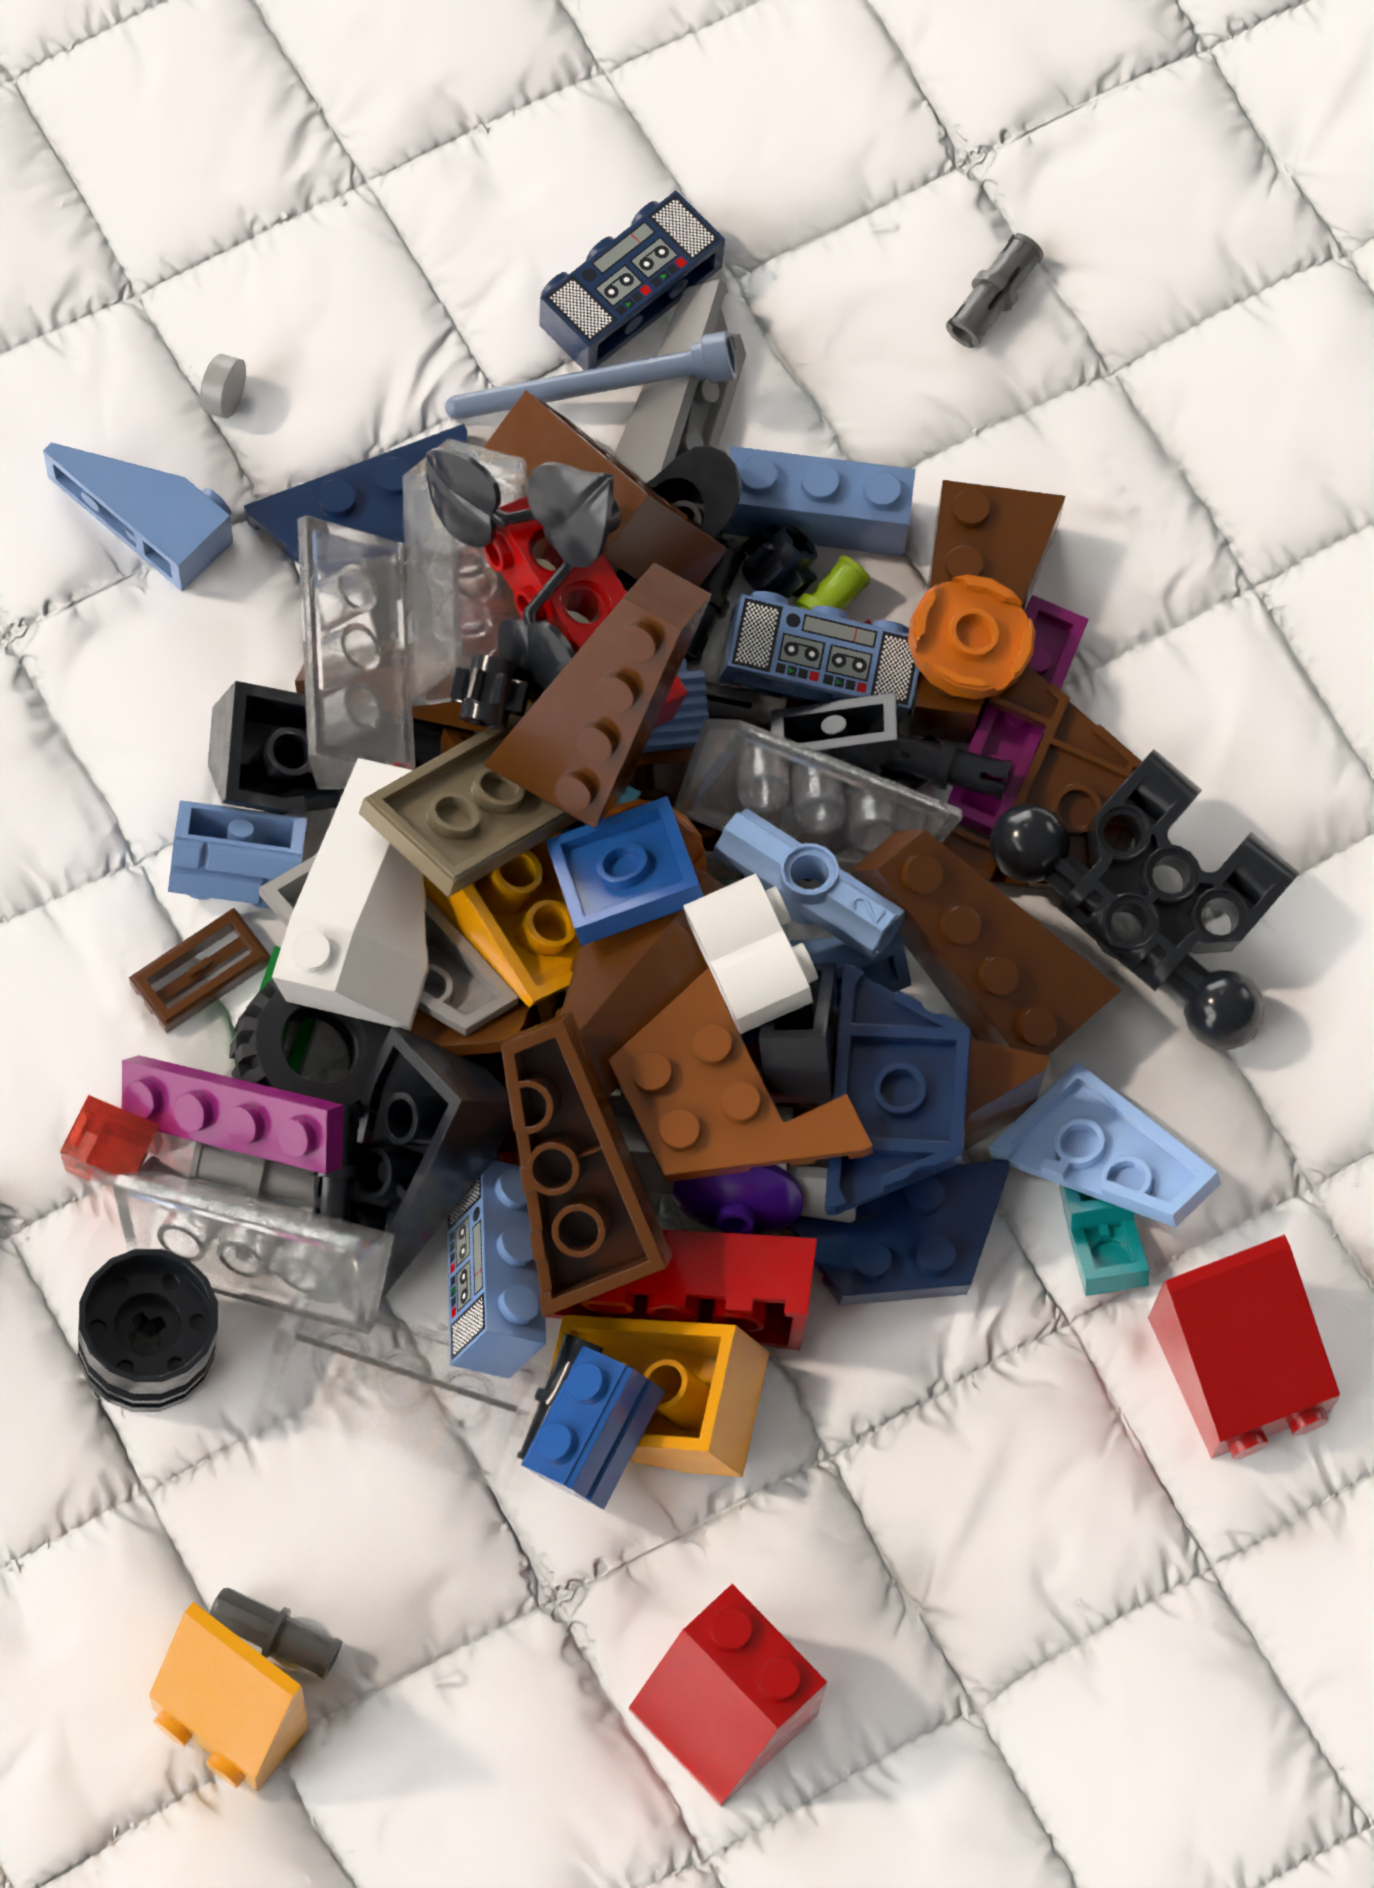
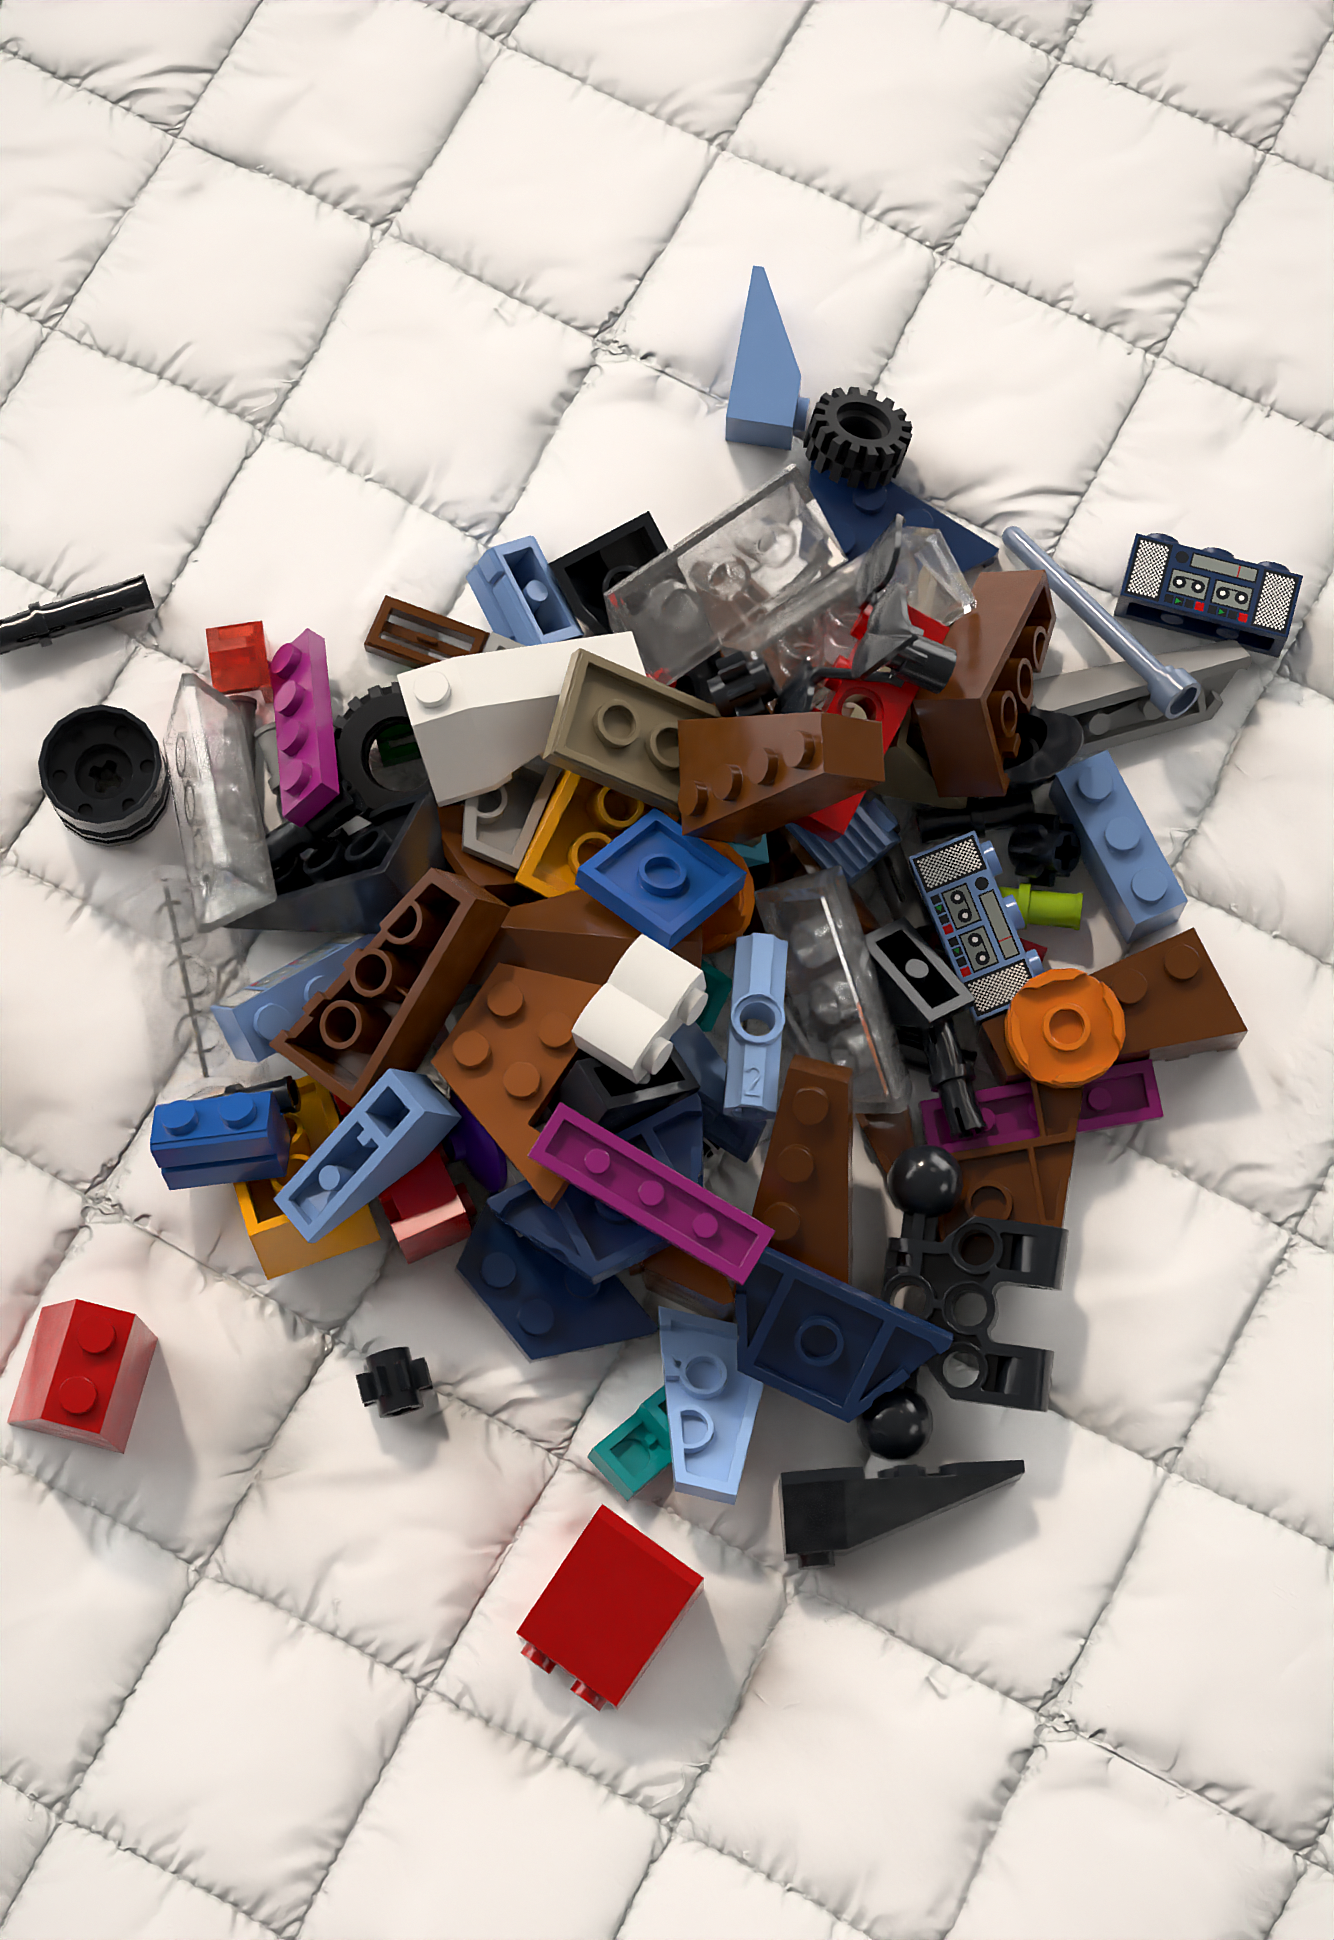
camera: 65 degrees right, 5 degrees up
(222, 385) = (905, 359): light grey tile -> none
(276, 469) = (857, 437): none -> black tyre
(708, 1293) = (368, 1152): none -> medium blue slope
(914, 1419) = (394, 1382): none -> black gear
(925, 1050) = (651, 1194): none -> magenta plate
(1119, 1009) = (826, 1337): none -> dark blue wing
(1283, 1091) = (841, 1511): none -> black wedge

